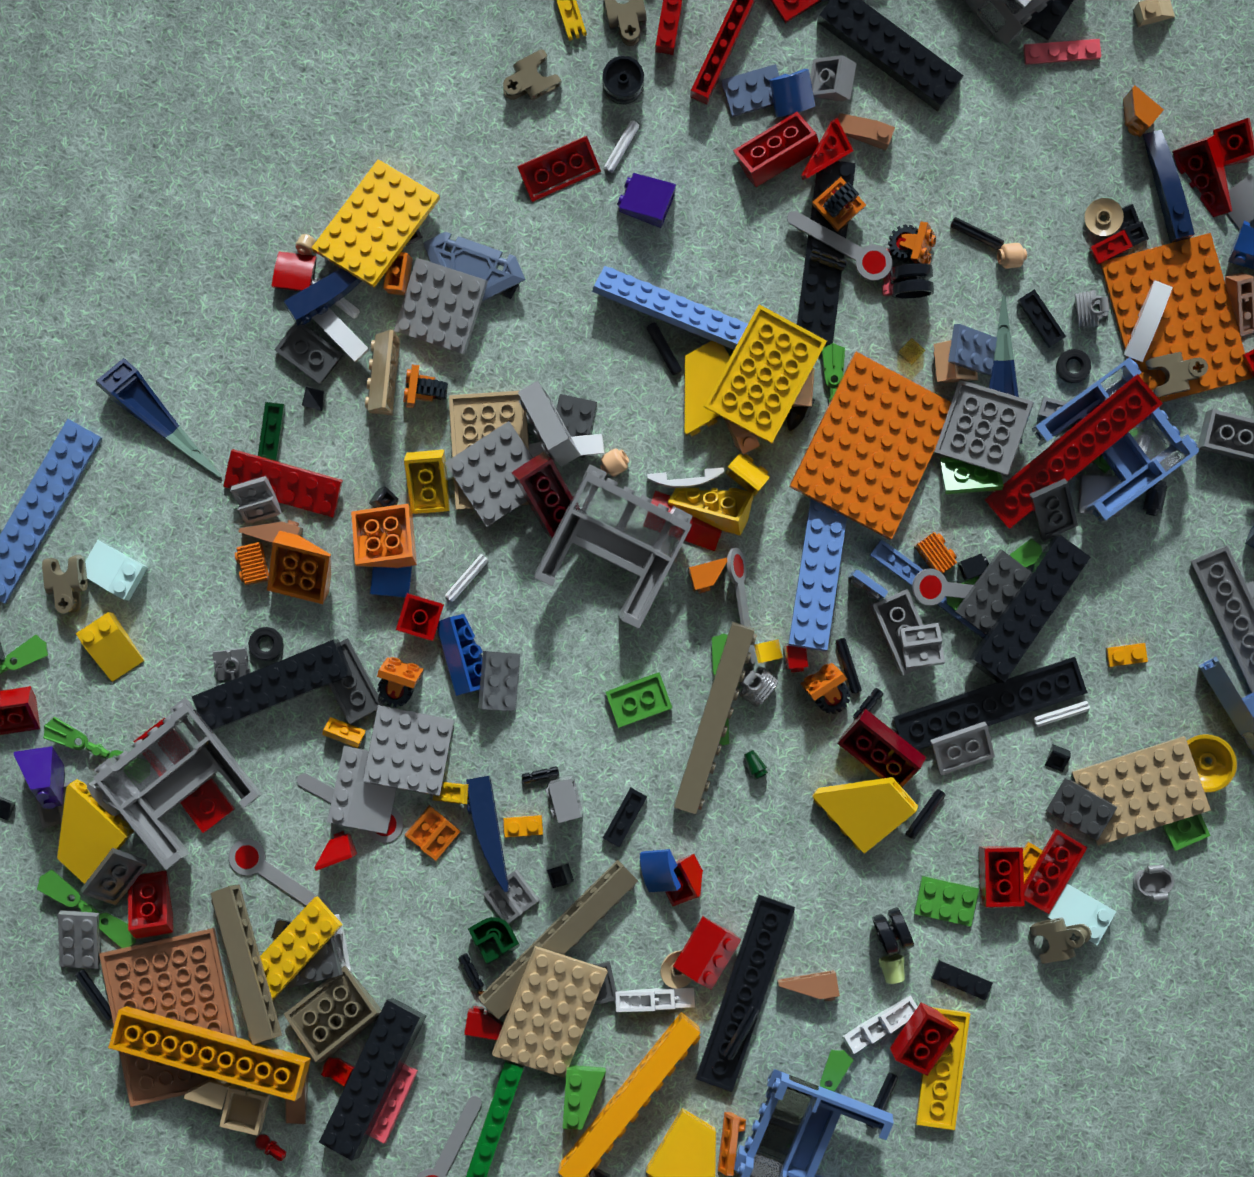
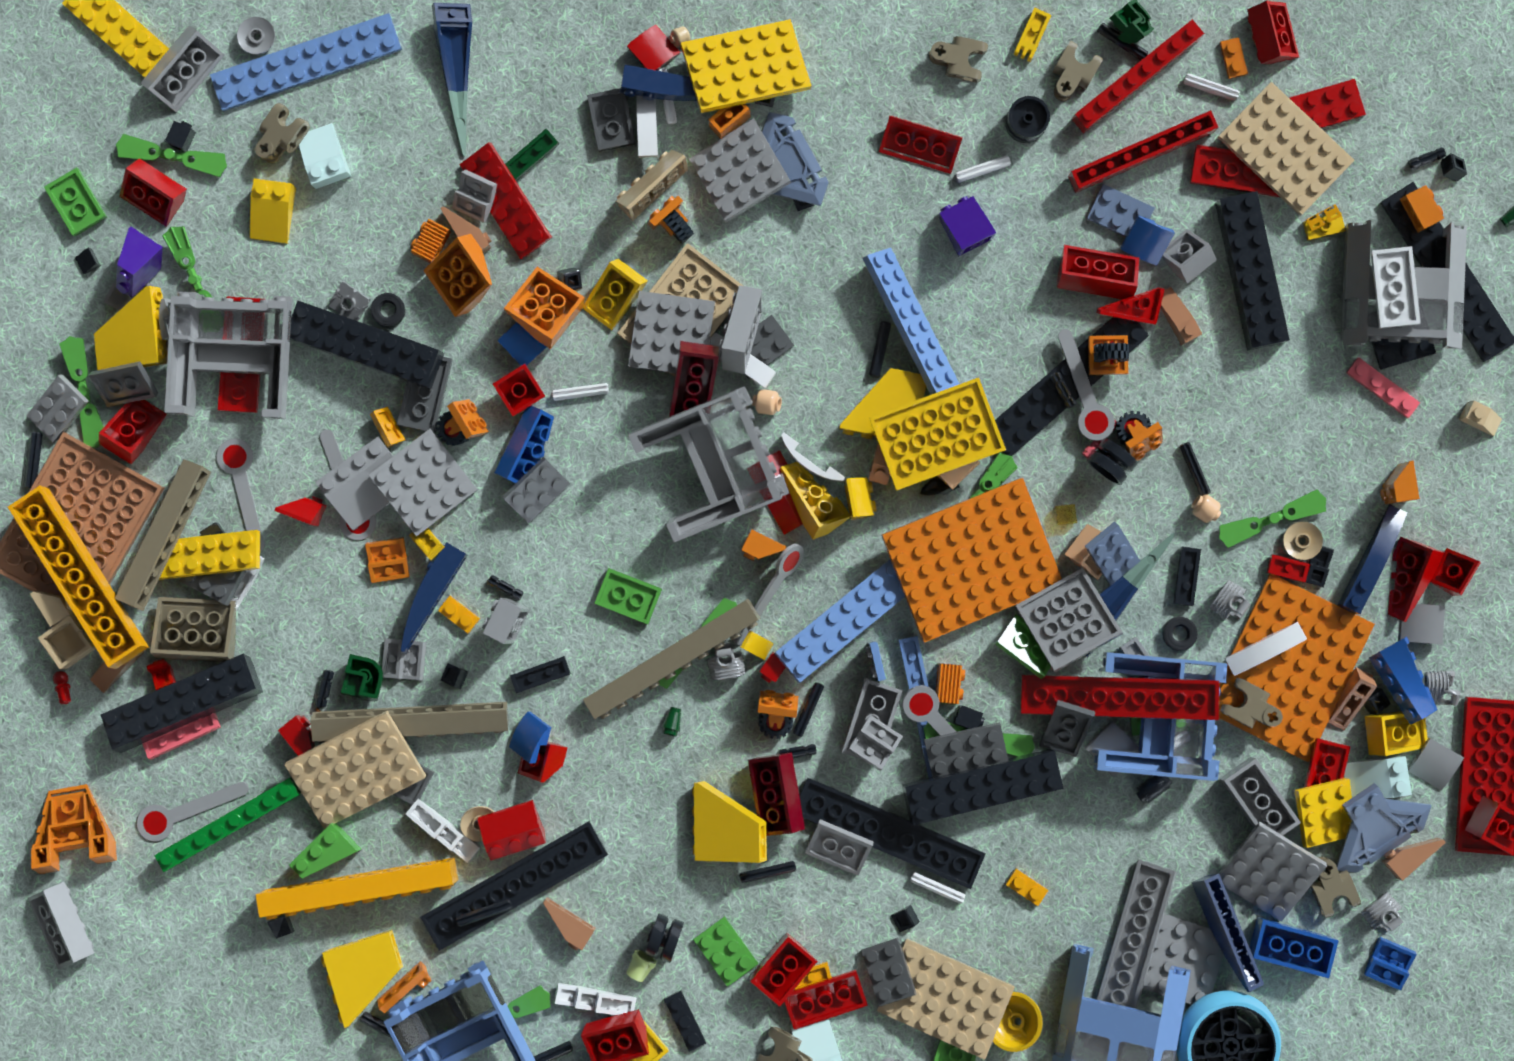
camera: 45 degrees right, 0 degrees up
(314, 399) = (584, 158): black slope -> none
(1083, 188) = (1240, 530): none -> bright green piece

